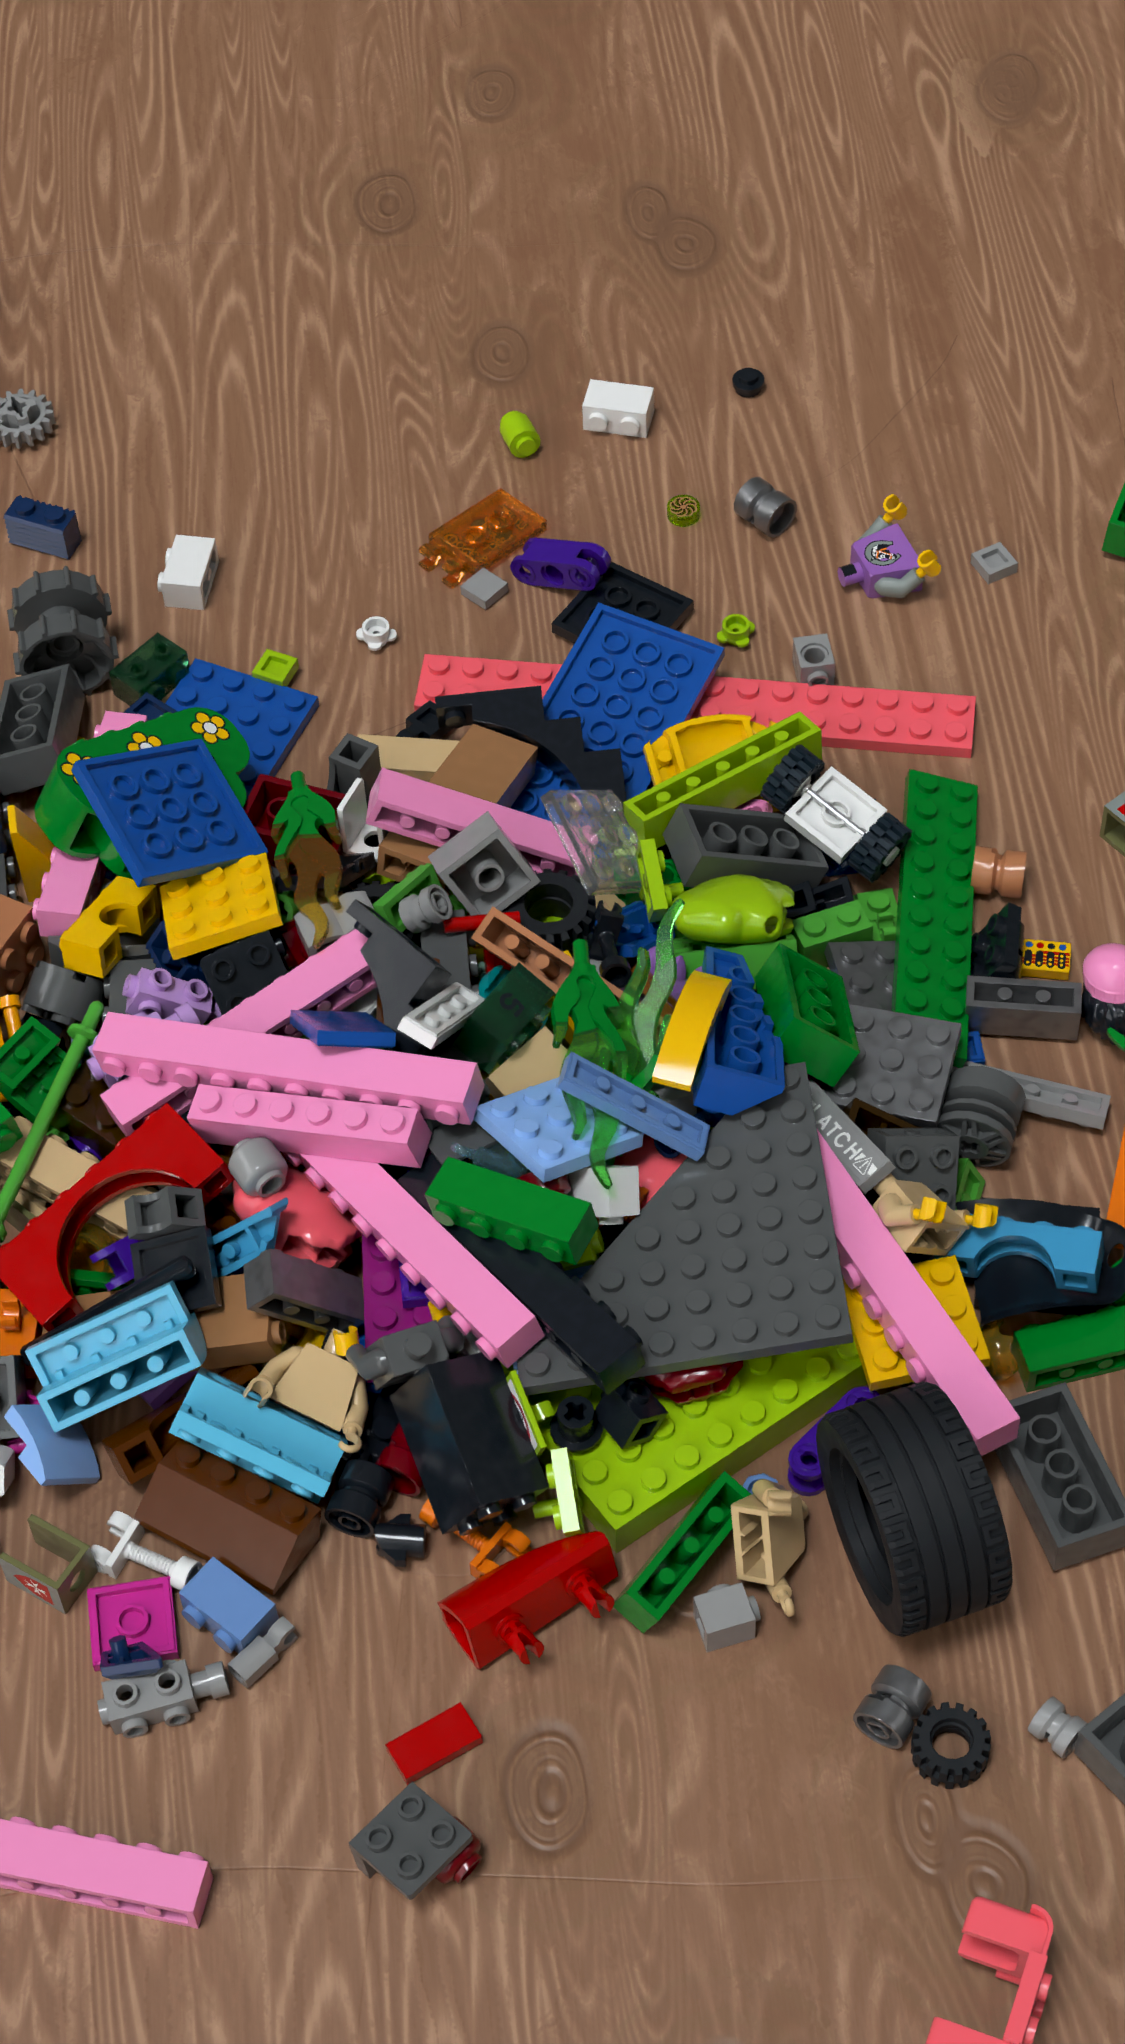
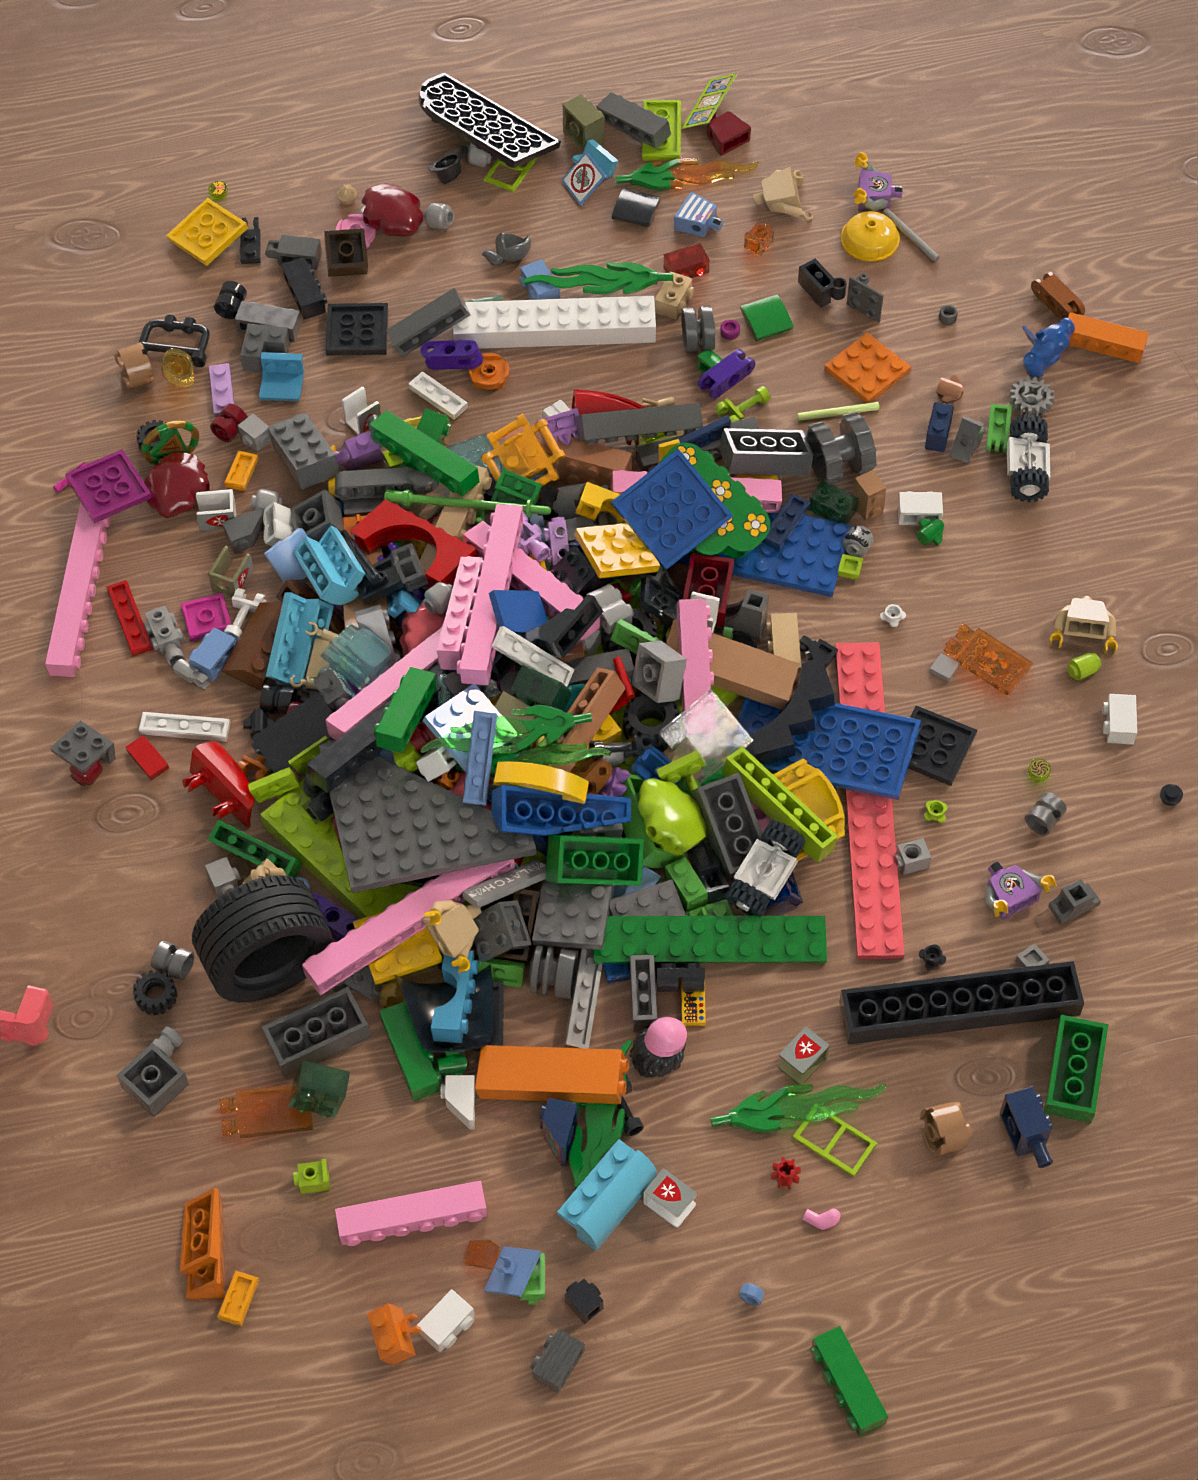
camera: 80 degrees right, 5 degrees up
(65, 464) = (998, 427): none -> bright green hinge
(79, 491) = (967, 439): none -> dark grey brick
(98, 1765) = (129, 618): none -> red tile
(129, 1660) = (177, 613): dark blue piece -> none
(139, 432) = (1028, 458): none -> plate
(156, 610) = (871, 495): none -> medium nougat brick
(231, 651) = (858, 541): none -> light grey head
(235, 568) = (930, 531): none -> green piece
(300, 843) = (659, 583): piece -> none
(350, 1304) = (358, 655): none -> clear light blue brick
(375, 1675) = (184, 726): none -> white tile
(428, 907) = (620, 639): light grey wheel -> none
(446, 415) = (1086, 619): none -> tan torso
(561, 564) = (964, 700): dark purple piece -> none
(918, 493) = (1073, 901): none -> dark grey brick
(979, 667) = (934, 950): none -> black plate
(998, 872) = (752, 975): nougat wheel -> none
(1068, 642) = (961, 1002): none -> black brick

